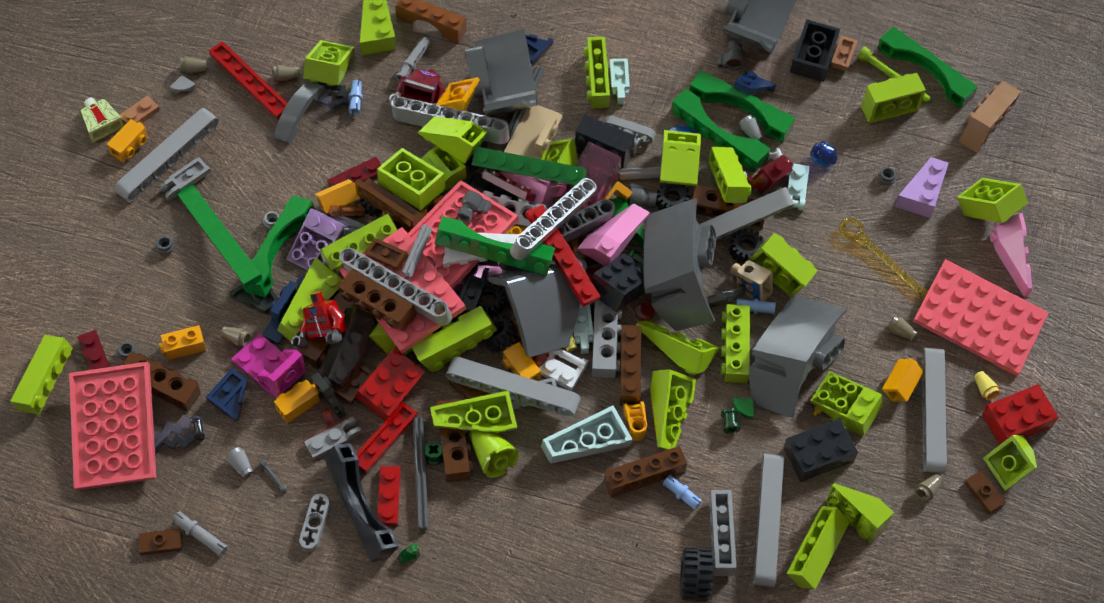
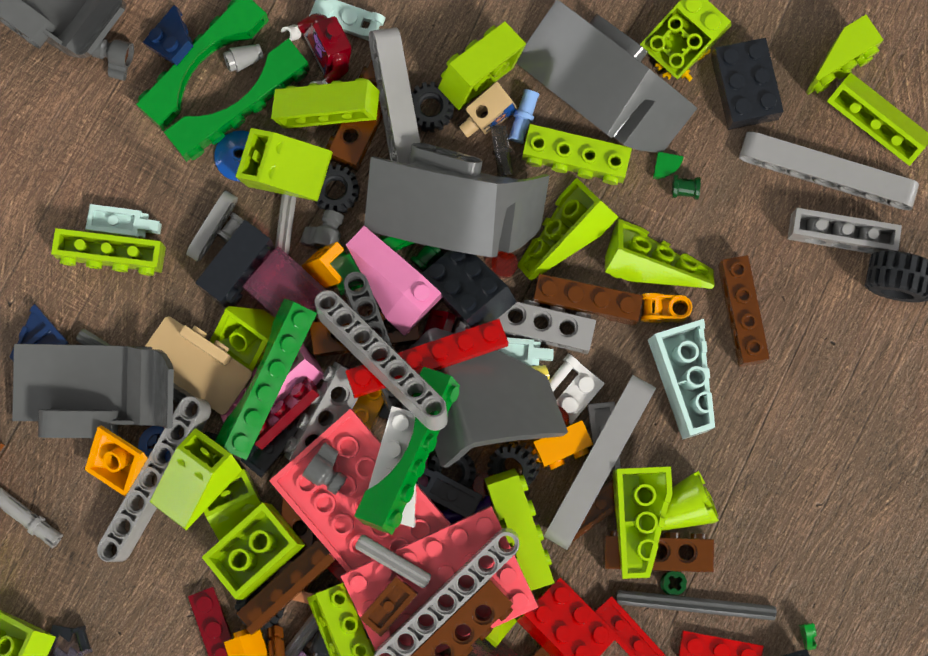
camera: 80 degrees left, 20 degrees up
(355, 97) = (78, 613): light blue pin -> none
(420, 86) = (83, 512): dark red torso -> none
(682, 492) = (775, 270): light blue pin -> none

